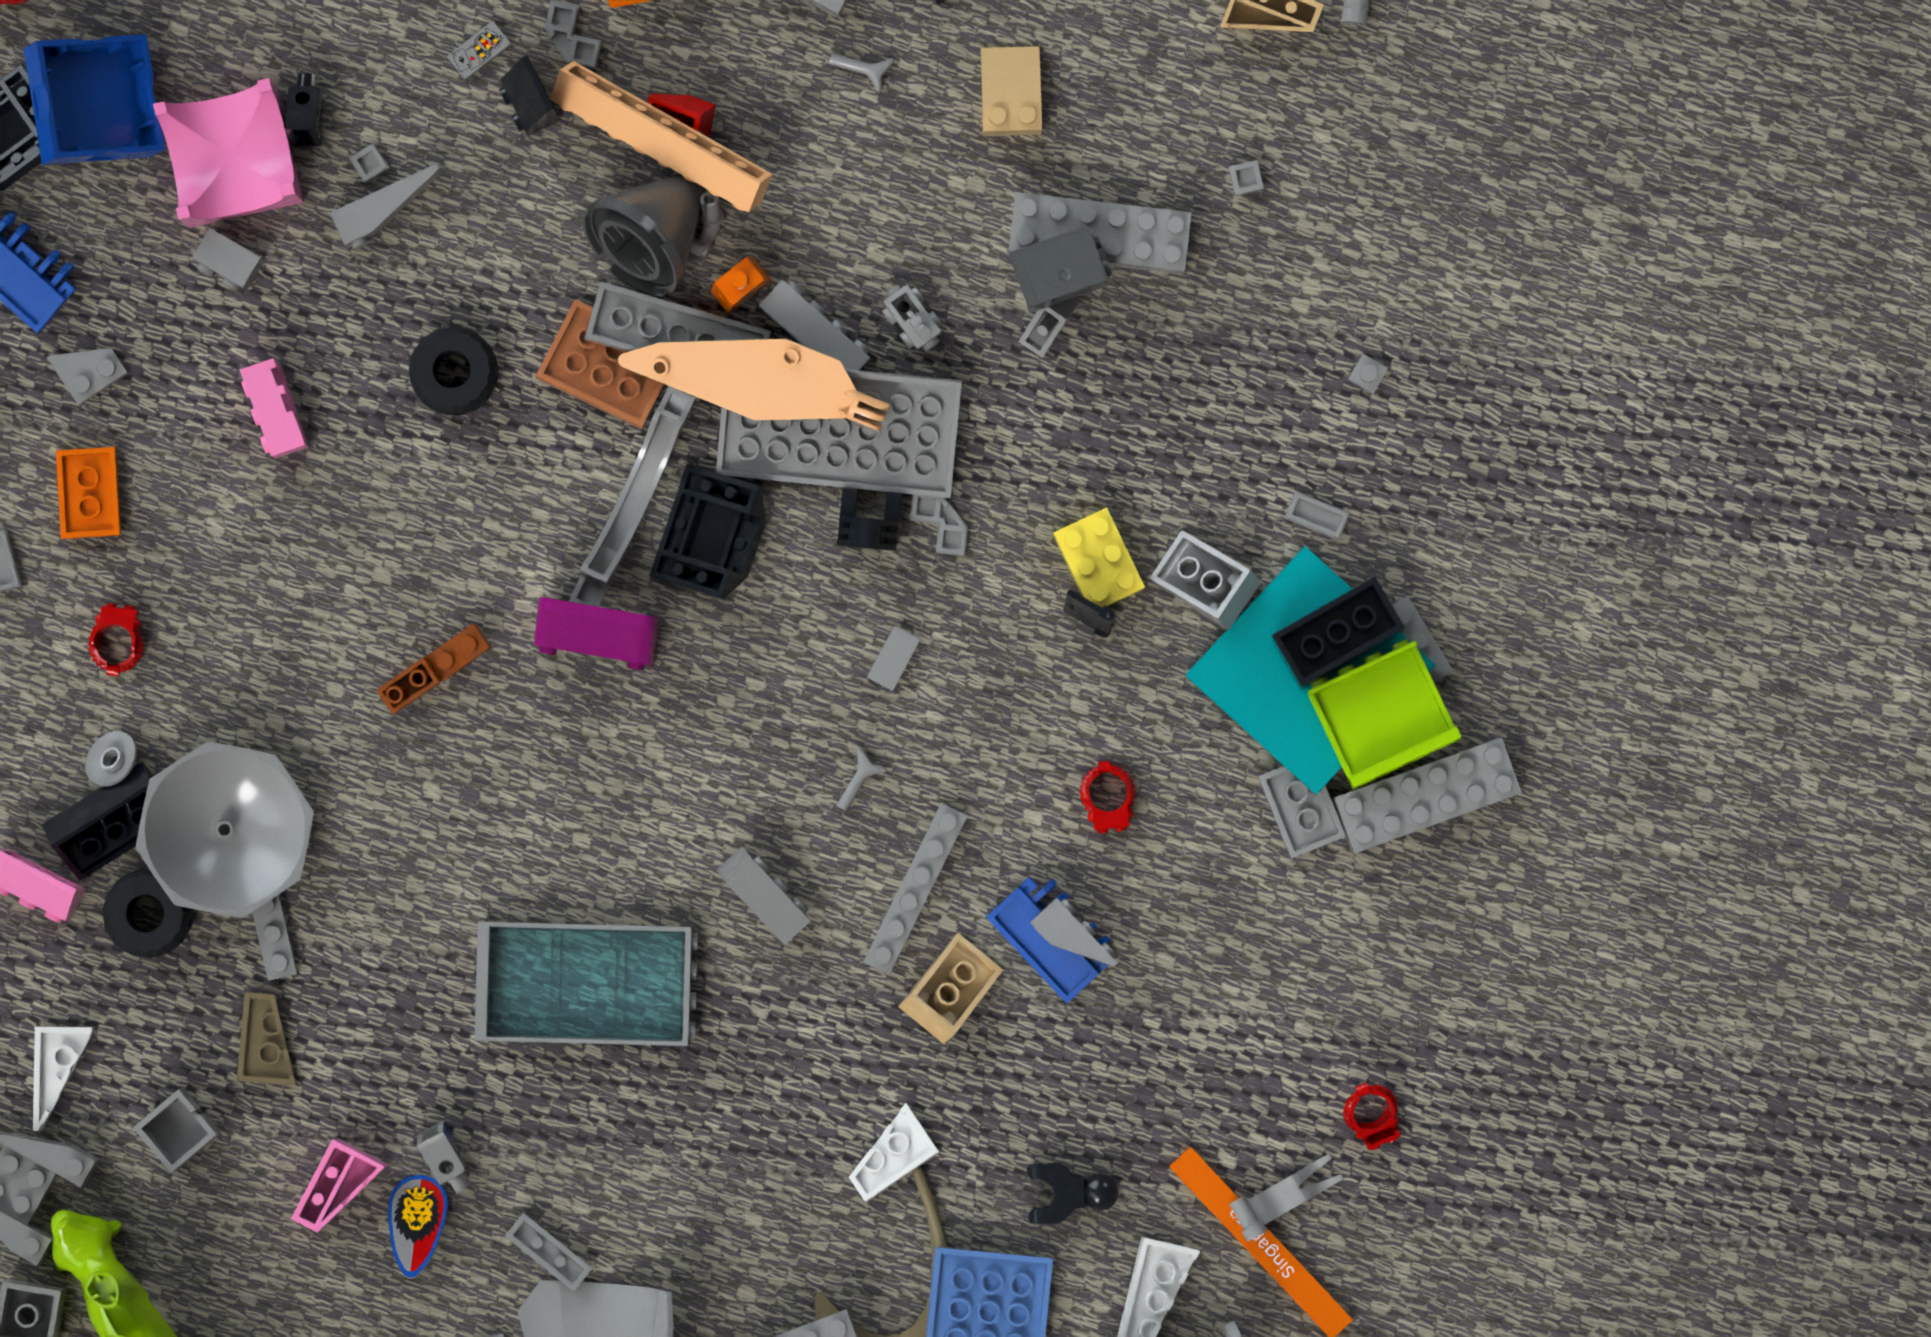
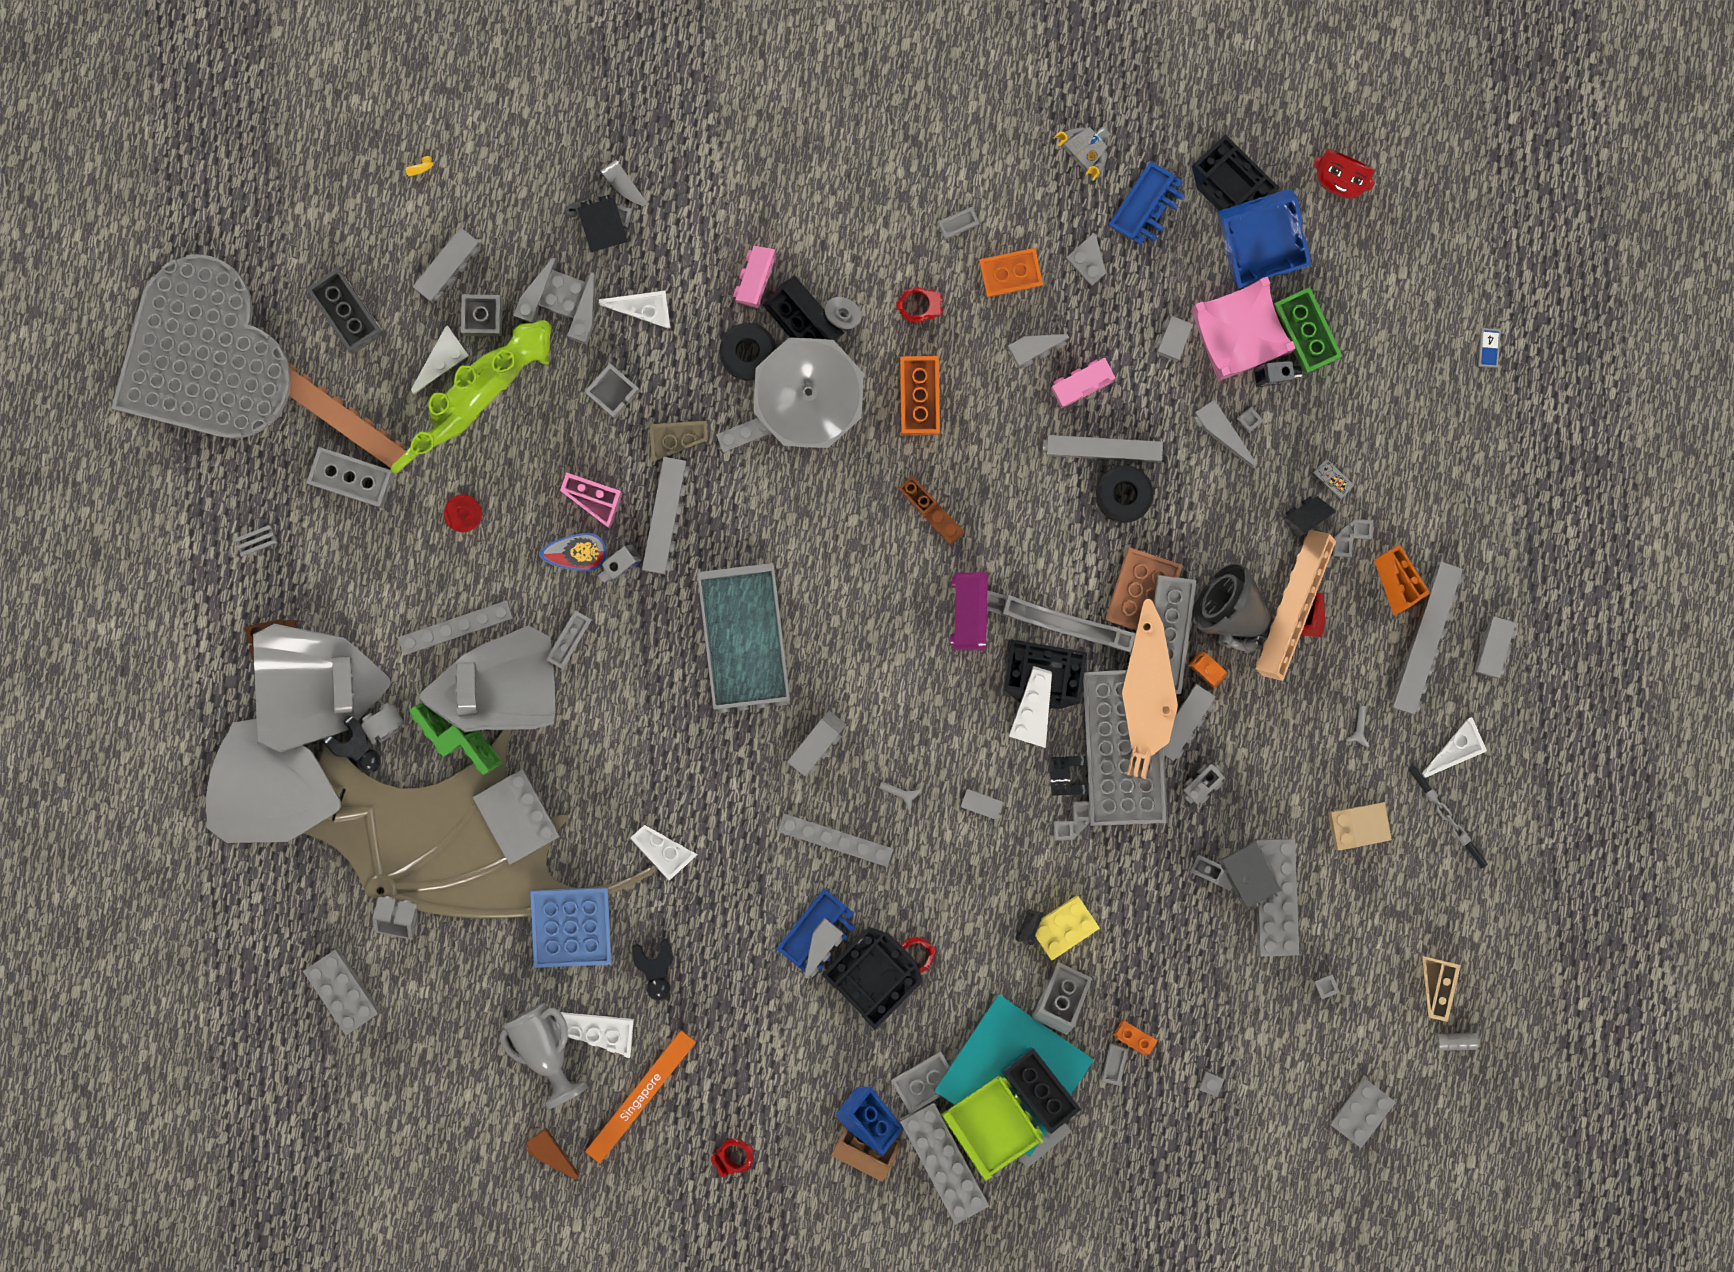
camera: 80 degrees right, 0 degrees up
(207, 475) = (1031, 347): none -> light grey slope
(245, 53) = (1308, 330): none -> bright green brick
(255, 660) = (919, 395): none -> orange brick
(379, 392) = (1103, 448): none -> light grey brick
(381, 1077) = (664, 516): none -> light grey brick
(765, 559) = (1032, 715): none -> white wing
(951, 988) = (774, 872): tan slope -> none
(1128, 859) = (875, 975): none -> black wedge
(1279, 1199) = (670, 1104): light grey flag -> none
(1280, 479) = (1135, 1038): none -> orange window
(1345, 898) = (870, 1119): none -> blue slope
(1388, 910) = (860, 1156): none -> medium nougat slope
(1444, 152) = (1362, 1113): none -> light grey plate

